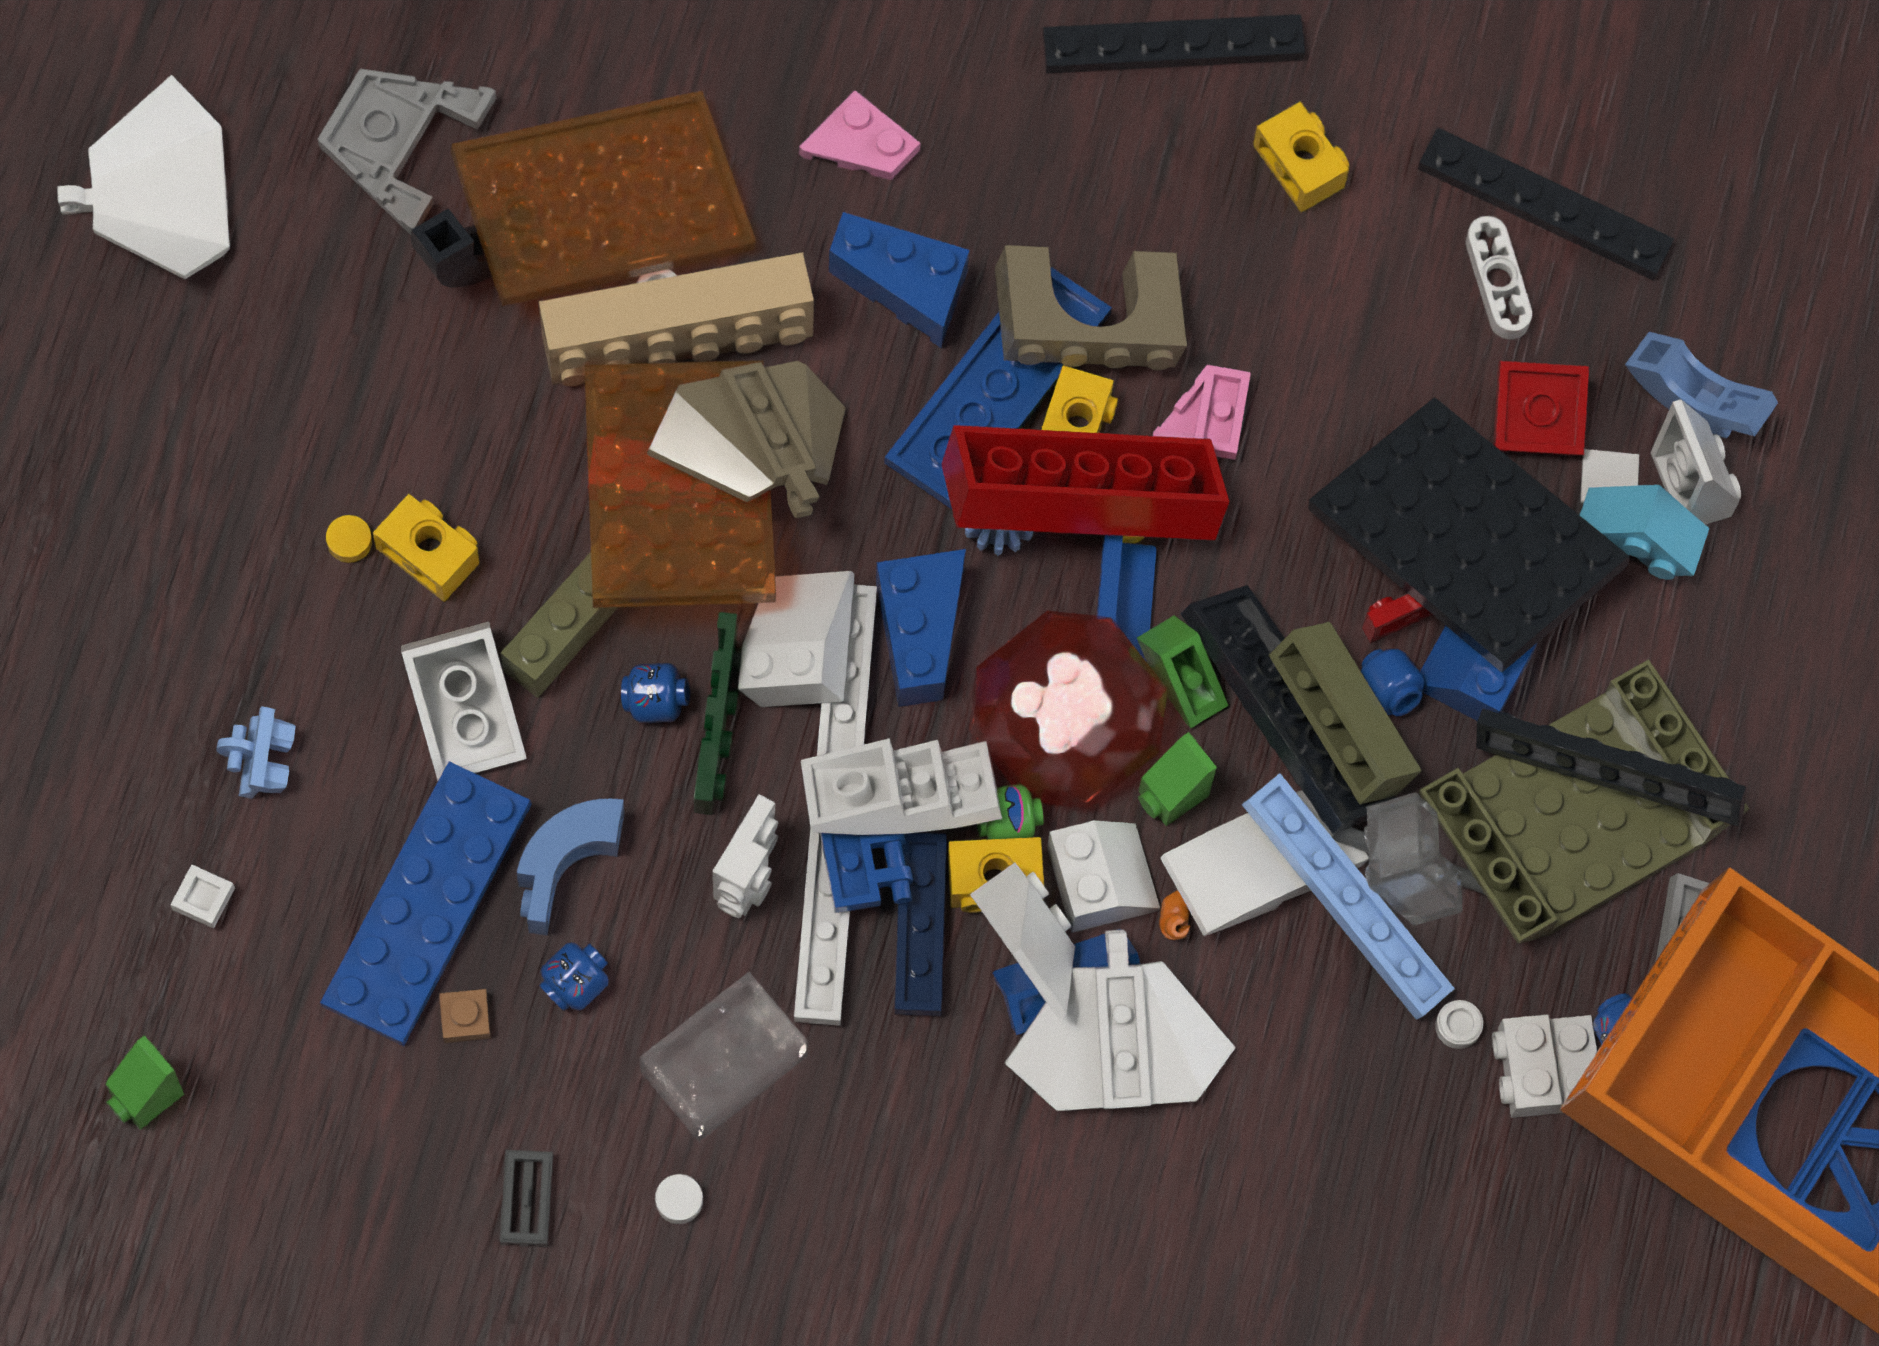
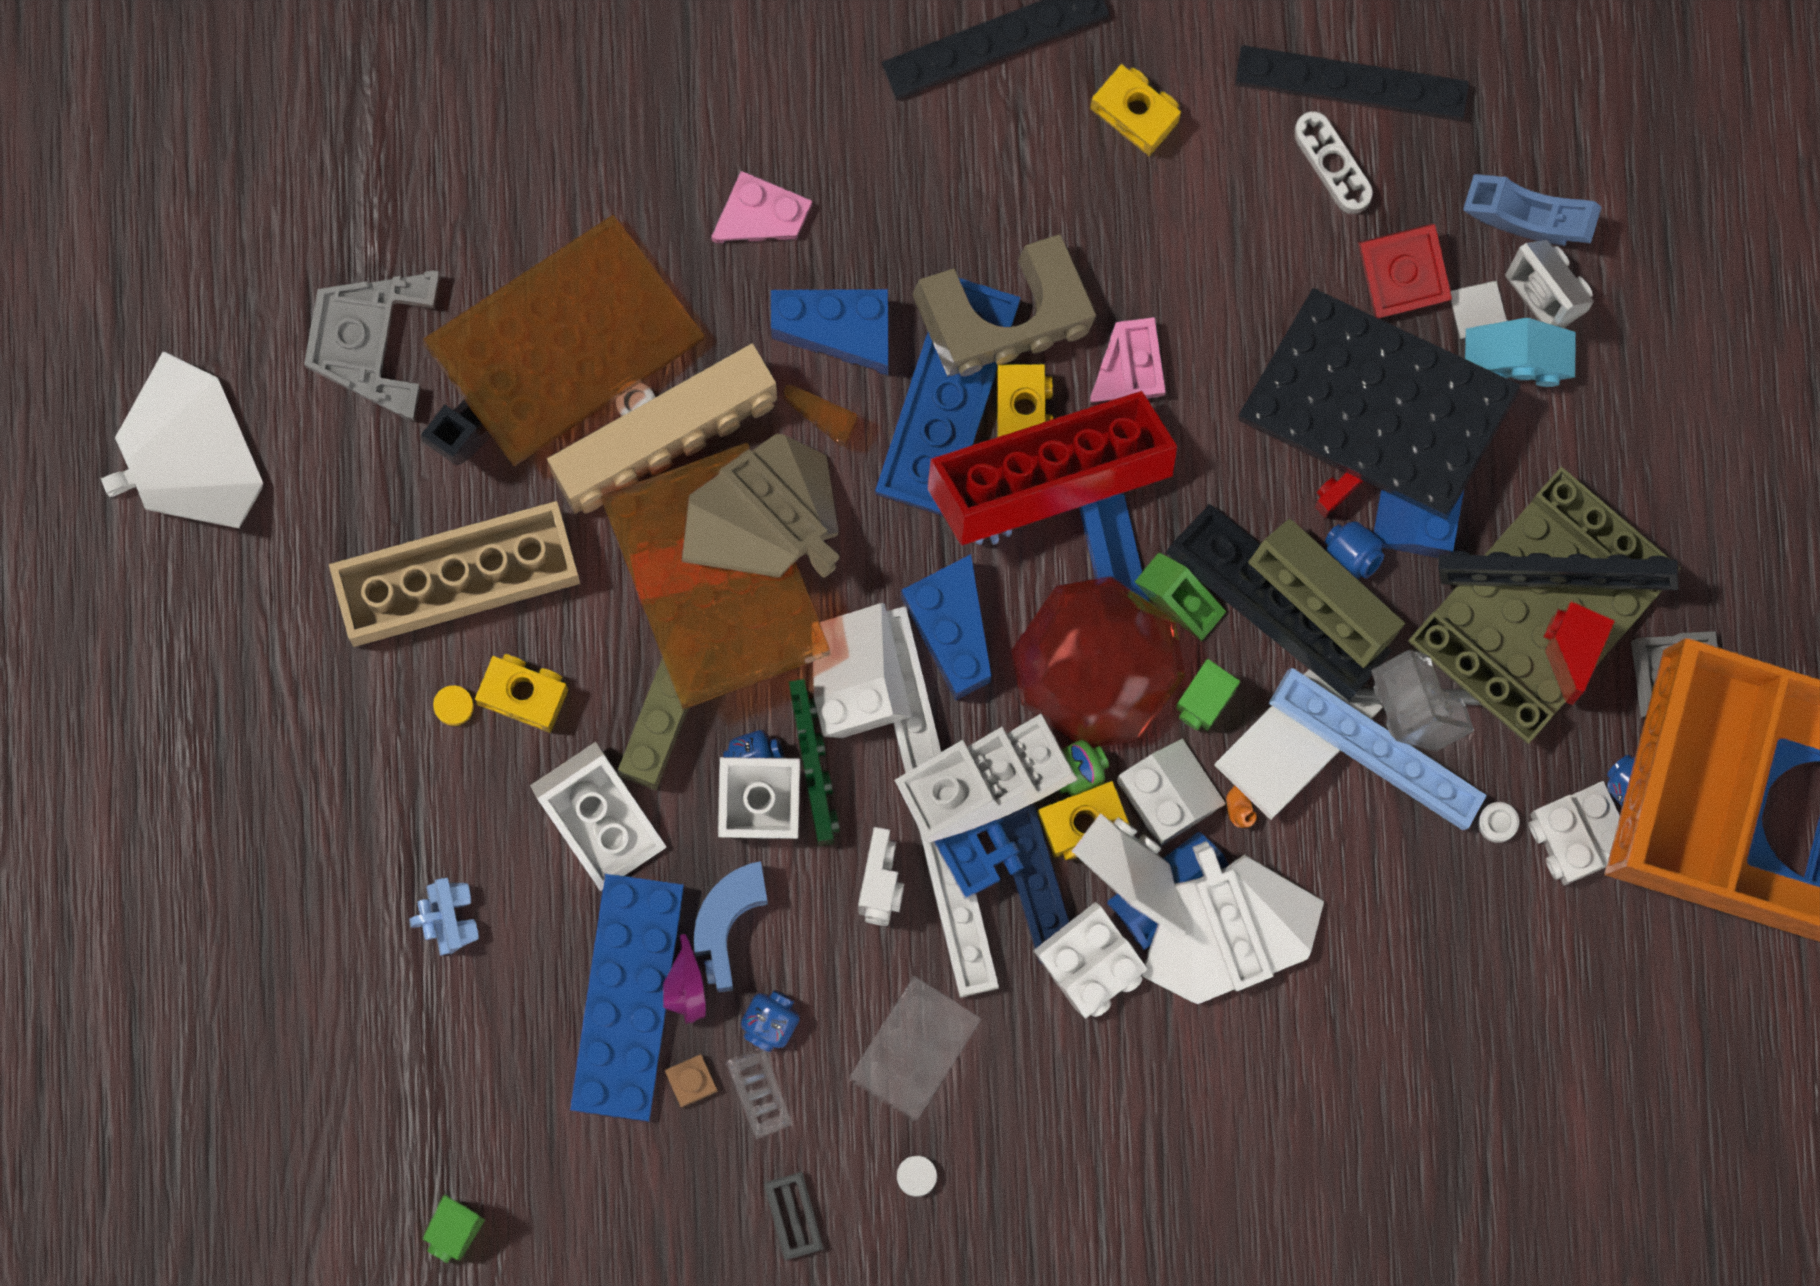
camera: 15 degrees left, 10 degrees up
(202, 896) = (442, 1052): white plate -> none
(398, 399) = (454, 574): none -> tan brick
(490, 909) = (684, 986): none -> magenta piece
(530, 1014) = (744, 1061): none -> clear slope
(644, 730) = (758, 797): none -> white slope
(861, 366) = (828, 417): none -> clear orange slope
(952, 1024) = (1091, 961): none -> white plate
(1605, 848) = (1574, 647): none -> red slope

